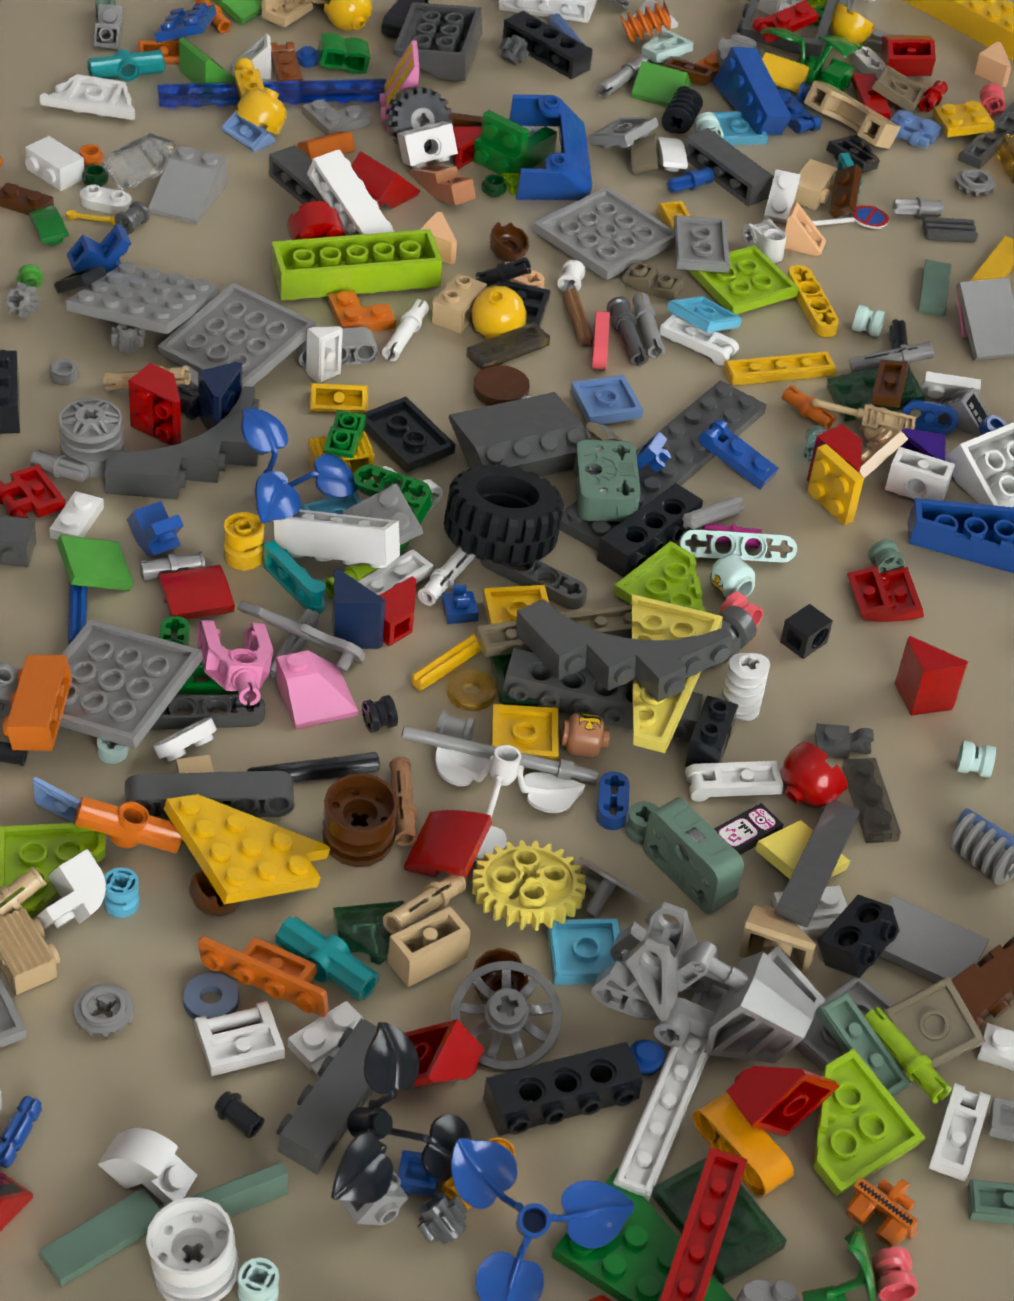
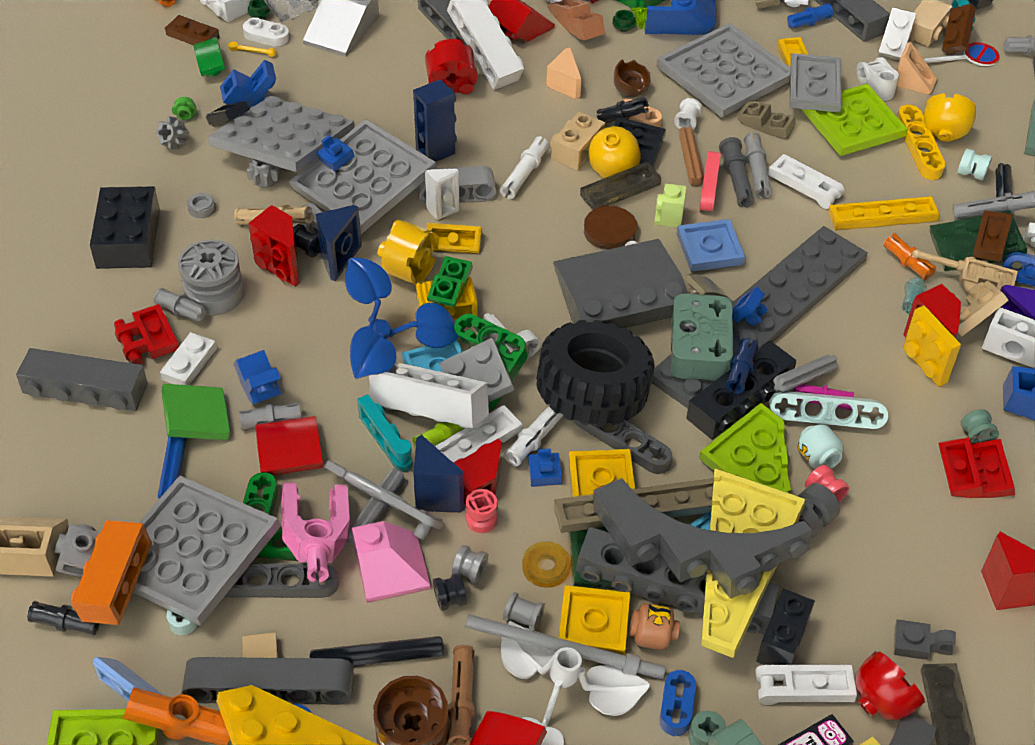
camera: 10 degrees right, 5 degrees up
(131, 216) = (285, 55): dark grey bush -> none
(166, 469) = (277, 312): dark grey arch -> none
(196, 733) = (265, 607): white plate -> none
(205, 316) = (334, 153): none -> blue tile
(243, 541) = (339, 392): yellow wheel -> none
(298, 407) = (408, 252): none -> yellow brick
(309, 279) = (435, 120): none -> dark blue brick
(351, 314) = (479, 153): orange plate -> none
(356, 264) = (500, 98): lime brick -> none
(398, 688) = (470, 564): none -> light grey wheel
(402, 643) = (481, 510): none -> coral wheel
(407, 434) = (513, 278): black plate -> none
(445, 663) = (522, 534): yellow axle -> none
(562, 363) = (670, 206): none -> yellowish green brick
(650, 504) = (742, 365): none -> dark blue pin
(704, 314) = (813, 155): medium azure tile -> none
(737, 454) = (835, 307): blue plate -> none
(746, 683) = (824, 575): white piece -> none
(806, 631) = (892, 510): black brick -> none
(841, 274) = (949, 117): none -> yellow cylinder

